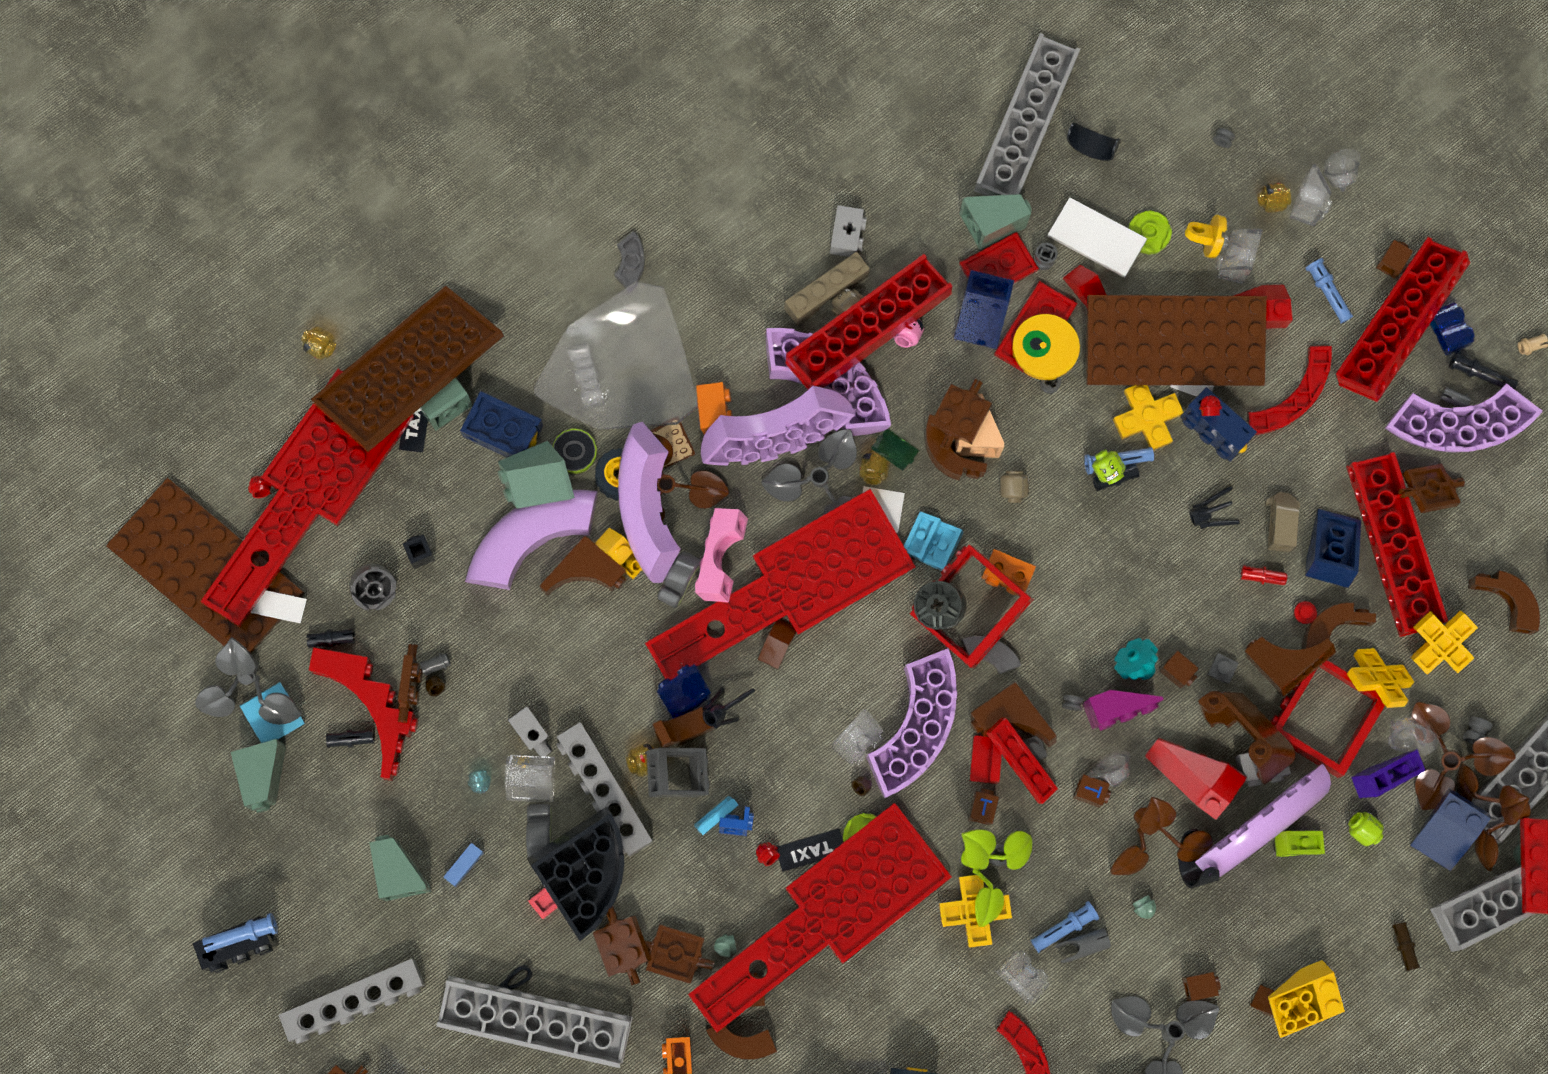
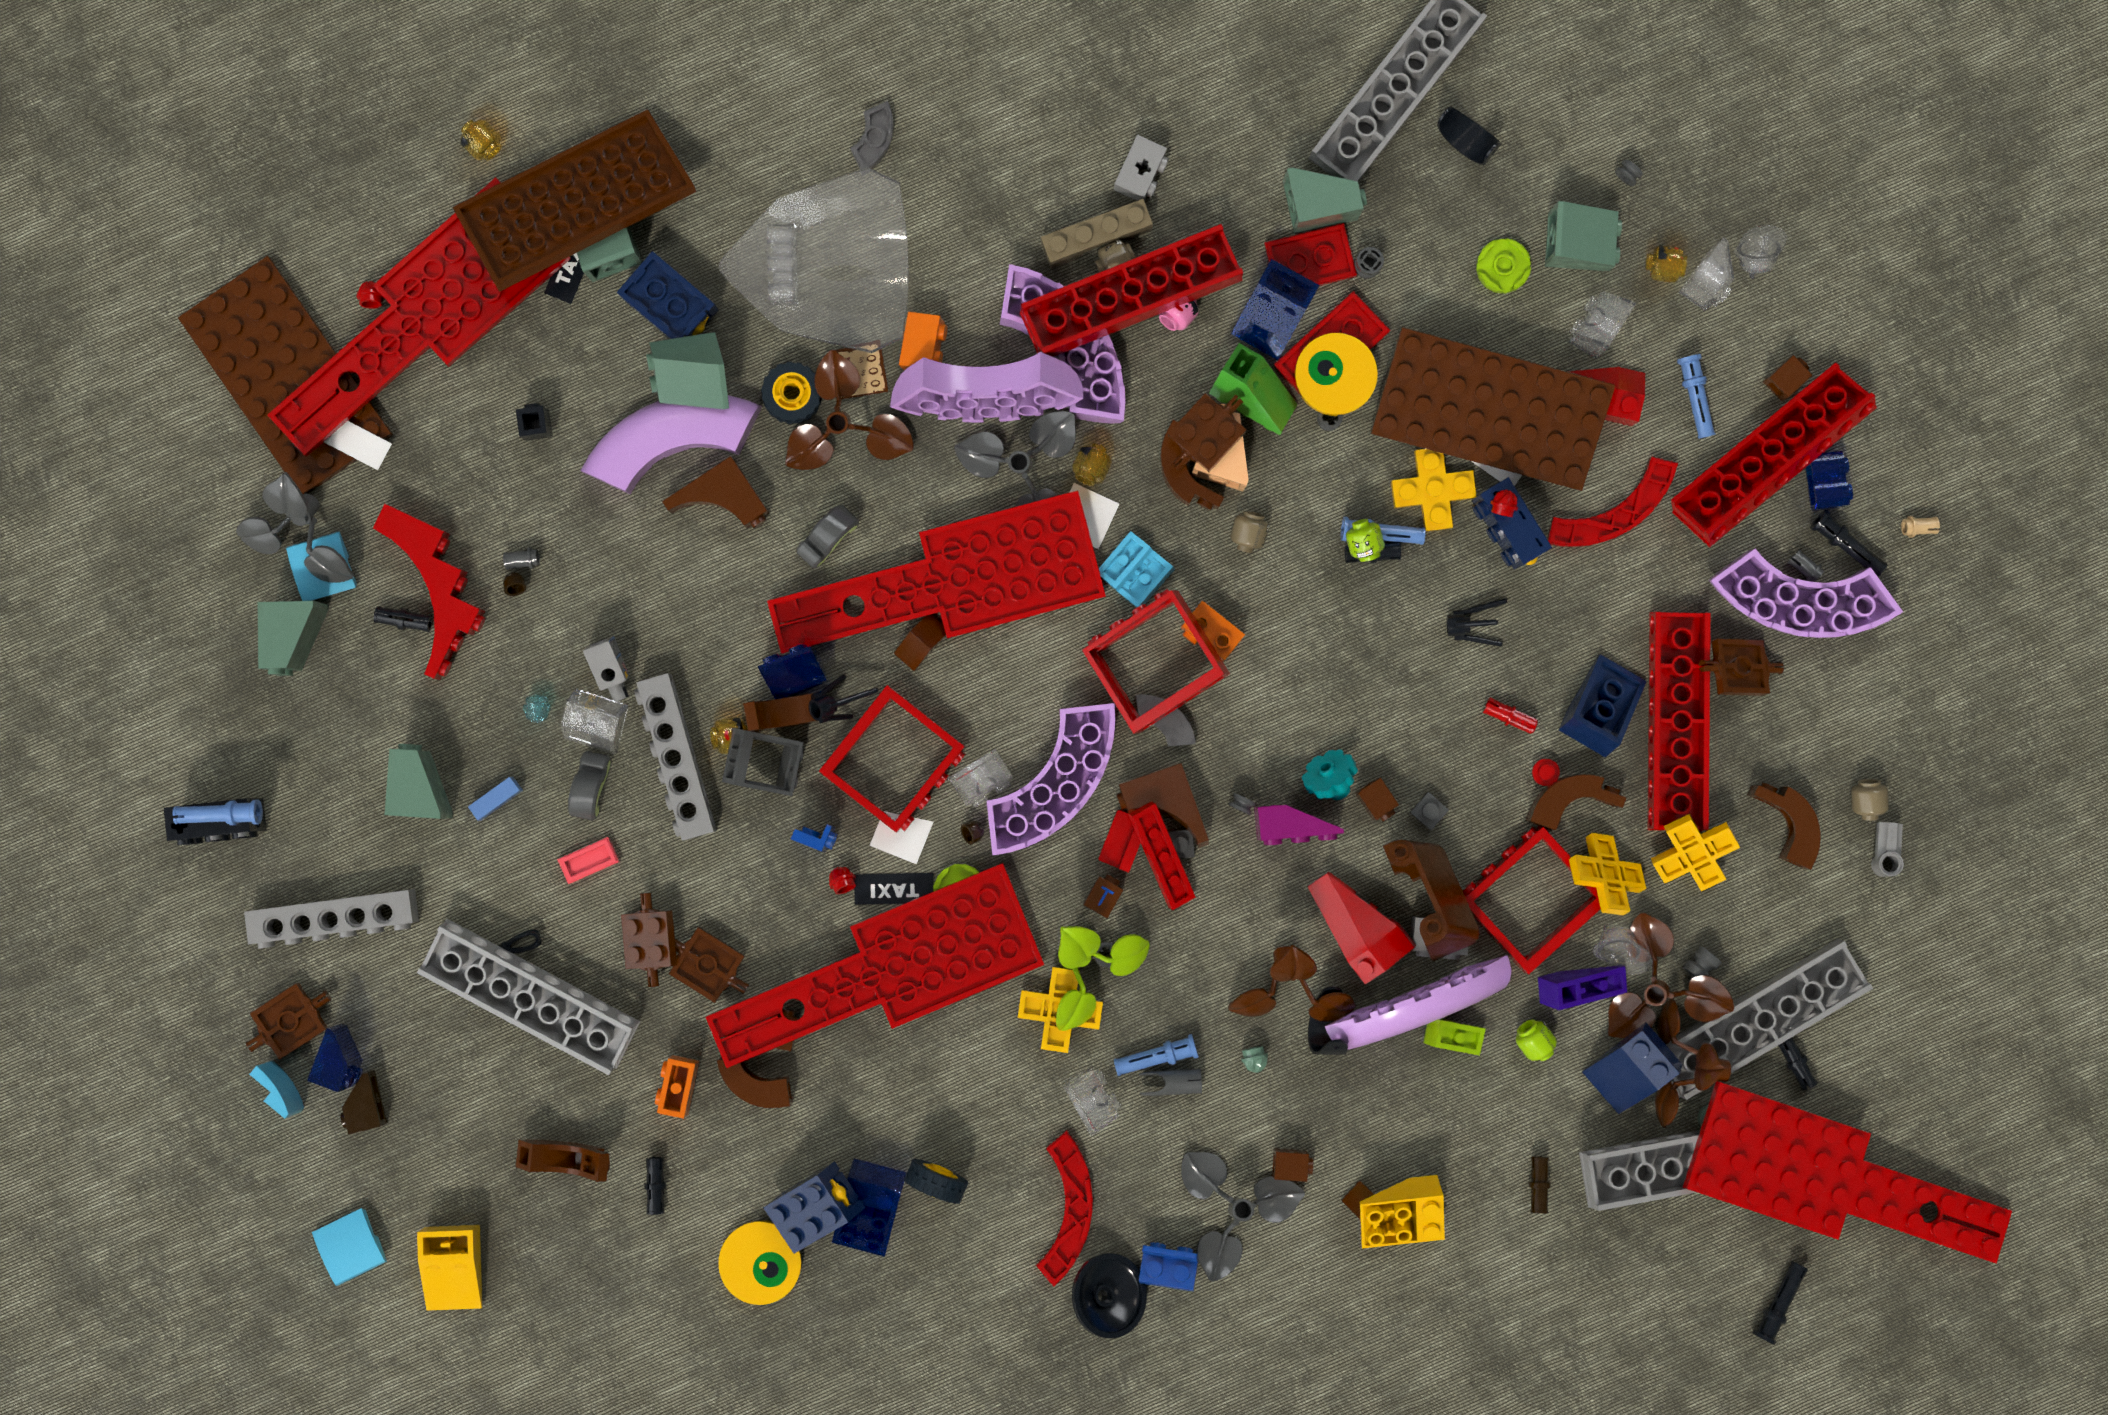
camera: 20 degrees right, 10 degrees up
(330, 638) = (409, 496): black pin -> none
(372, 587) = (469, 450): flat silver cylinder -> none
(410, 677) = (482, 576): reddish brown plate -> none
(576, 449) = (747, 350): black tile -> none
(583, 871) = (623, 846): black brick -> none
(619, 550) = (768, 487): yellow slope -> none
(641, 503) = (802, 438): lavender brick -> none
(714, 815) = (795, 820): medium azure tile -> none
(725, 529) = (896, 492): bright pink arch -> none
(725, 946) = (766, 971): sand green plate -> none
(805, 805) = (903, 844): none -> white sticker
(814, 767) = (936, 779): none -> red window
(895, 449) = (1121, 450): clear green piece -> none
(950, 613) = (1121, 638): pearl dark grey wheel -> none
(982, 365) = (1257, 386): none -> bright green slope
(1084, 283) = (1406, 309): red slope -> none
(1092, 791) = (1234, 911): reddish brown brick -> none
(1097, 237) = (1438, 256): white tile -> none
(1113, 768) = (1264, 892): clear piece -> none
(1203, 194) = (1582, 237): none -> sand green slope
(1209, 235) = (1572, 289): yellow tile -> none
(1283, 522) = (1553, 658): dark tan piece -> none
(1285, 666) = (1502, 832): reddish brown arch -> none

